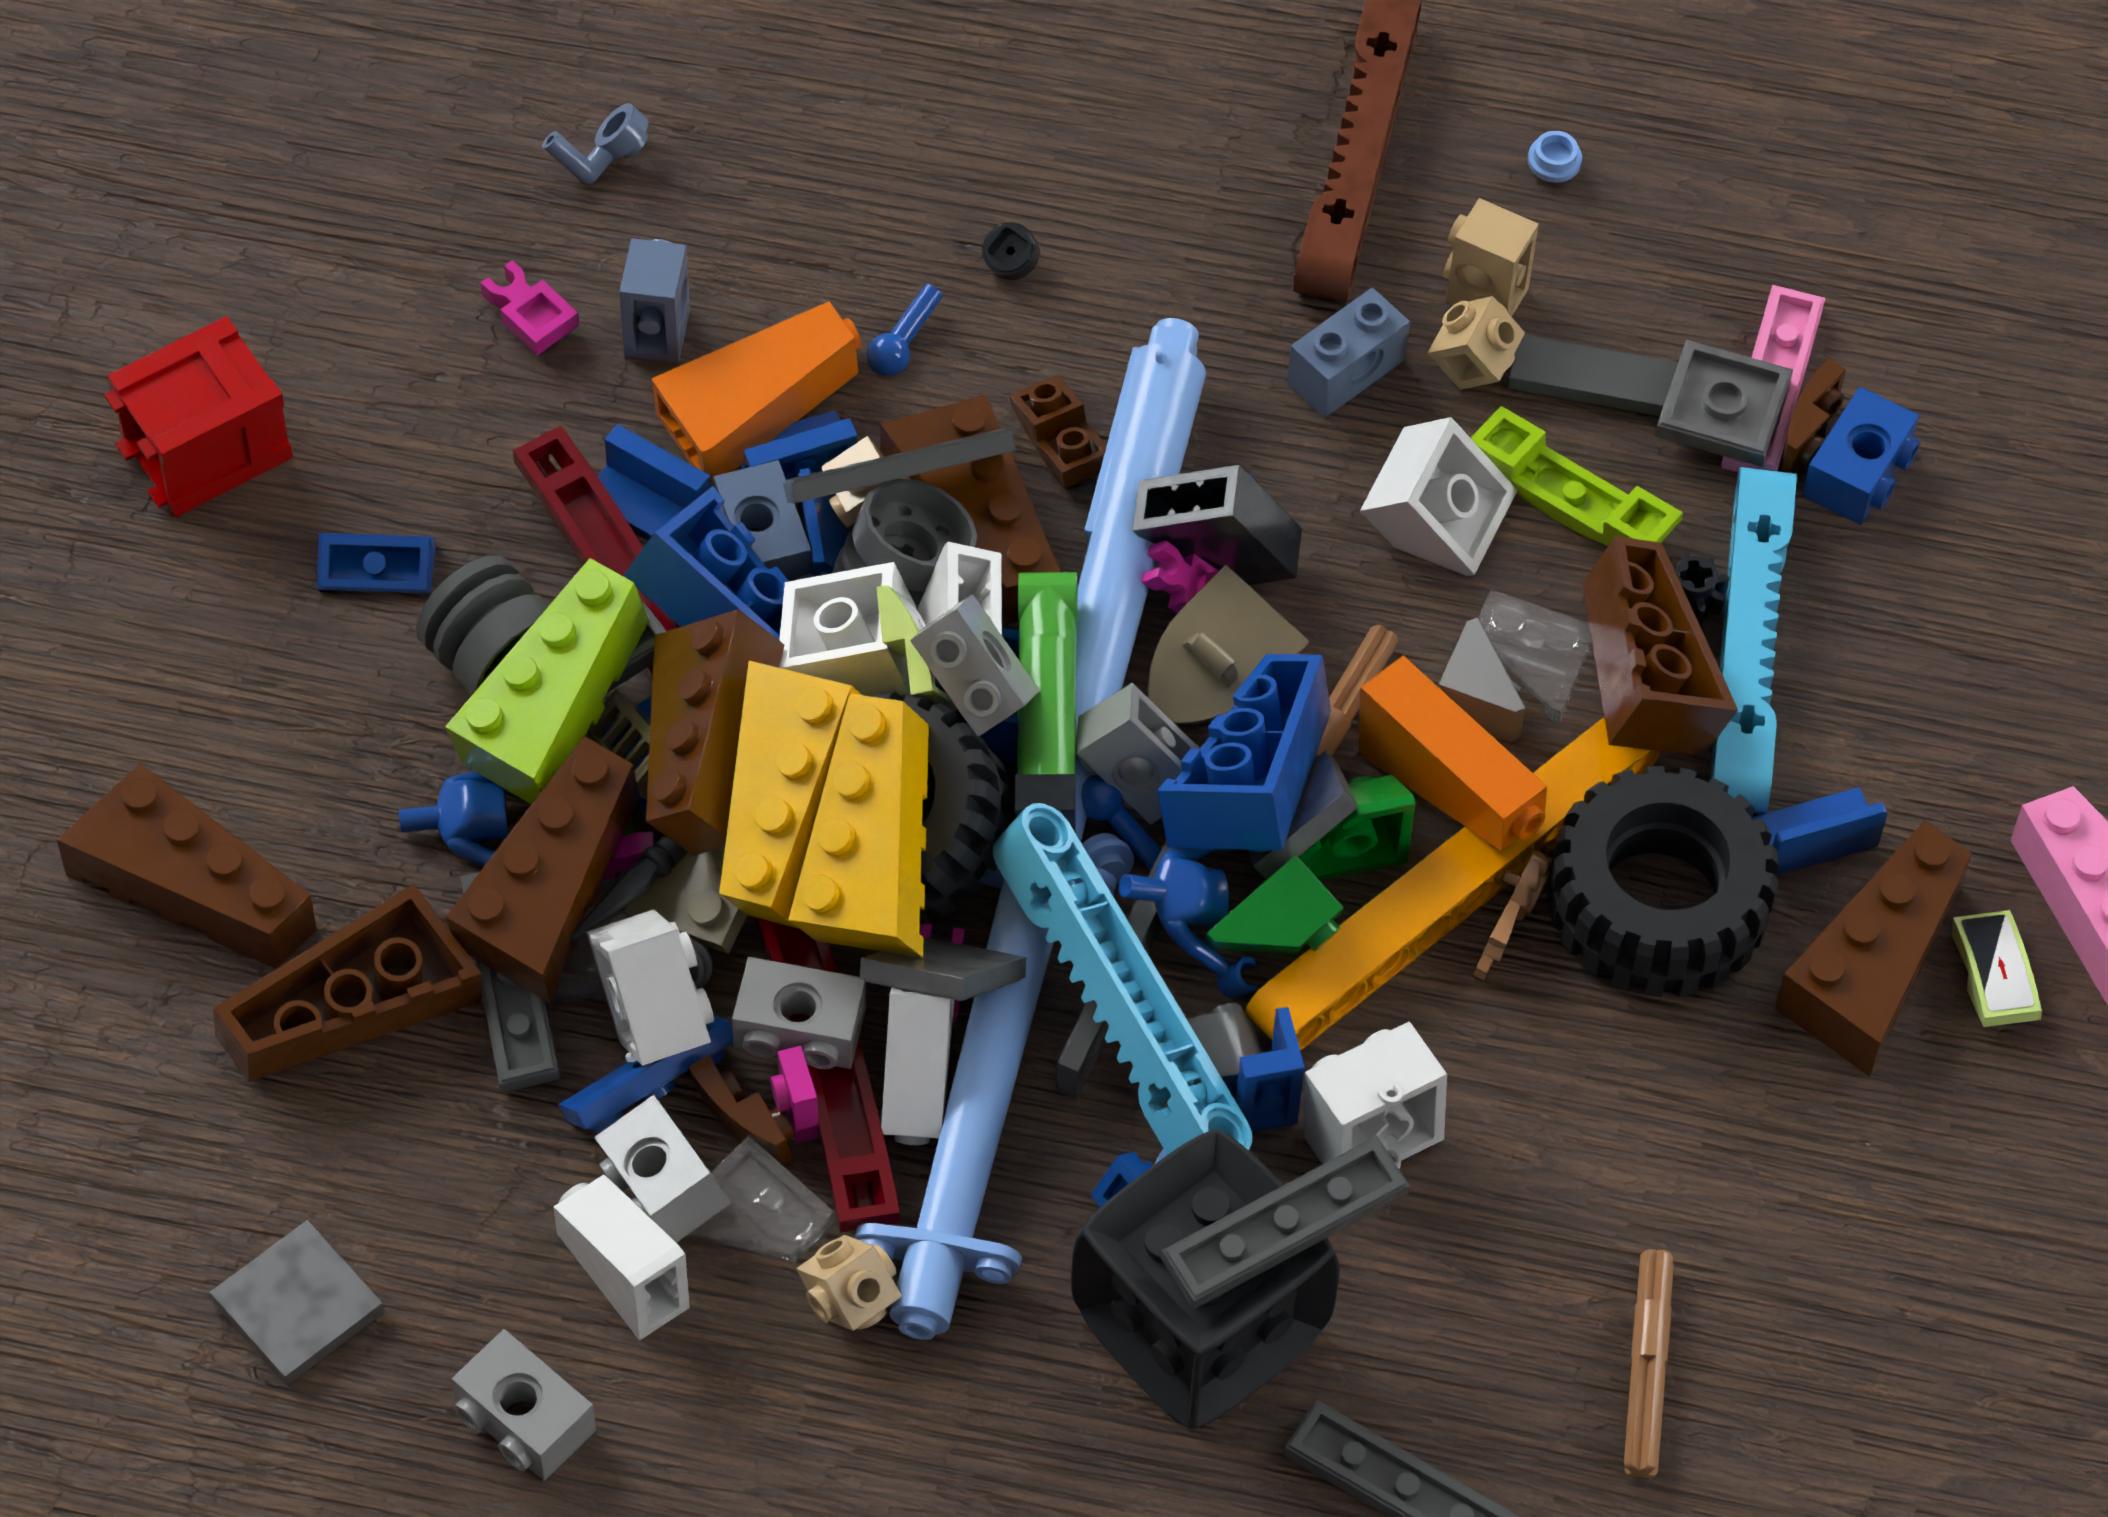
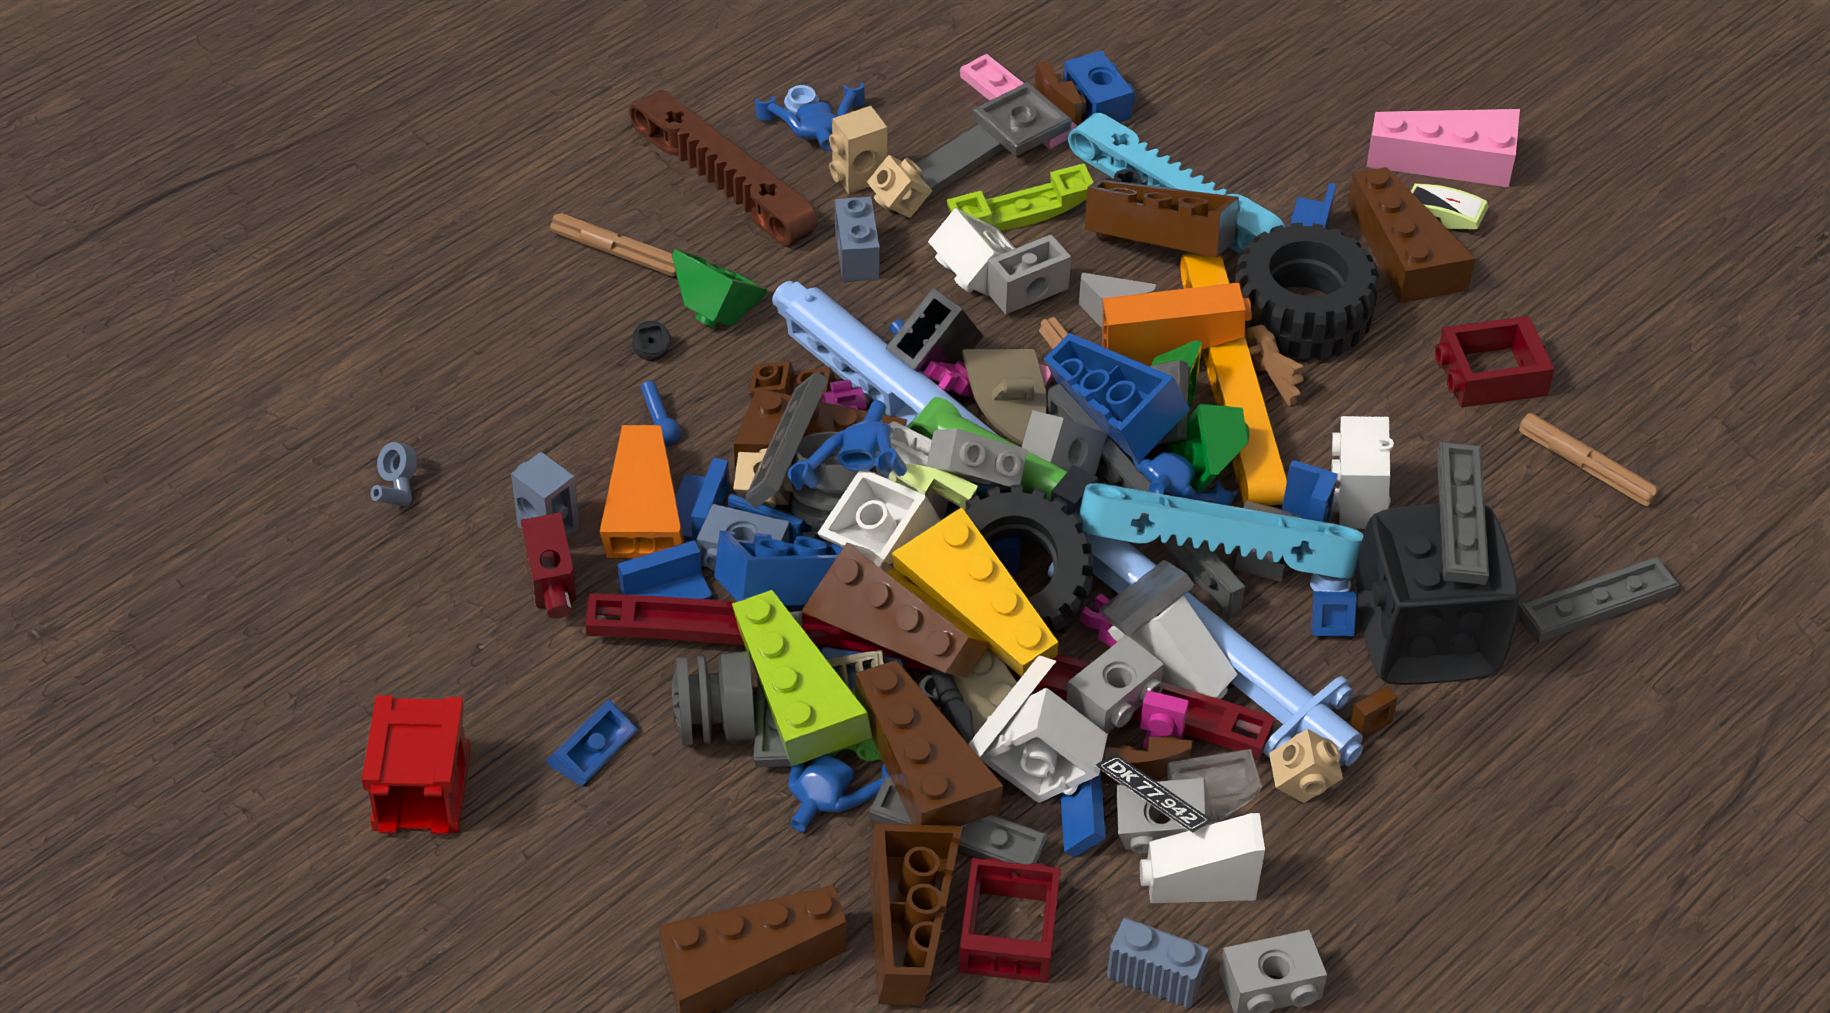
camera: 55 degrees left, 10 degrees down
(394, 1055) = (1002, 955): none -> dark red window
(452, 1277) = (1157, 962): none -> sand blue brick
(531, 313) = (485, 571): dark pink plate -> none
(571, 363) = (549, 572): none -> dark red torso
(652, 1134) = (1154, 793): none -> black sticker
(654, 914) = (1010, 704): none -> white sticker
(868, 834) = (1055, 571): yellow wedge -> none
(912, 541) = (862, 448): none -> blue piece
(999, 1318) = (1374, 712): none -> reddish brown tile
(1060, 498) = (845, 395): none -> magenta gear
(1137, 262) = (713, 291): none -> green slope
(1141, 123) = (613, 243): none -> medium nougat axle
(1433, 563) = (1028, 274): none -> light grey brick
(1534, 189) = (814, 119): none -> blue piece
(1537, 648) = (1108, 261): clear wing -> none
(1735, 1230) = (1522, 382): none -> dark red window

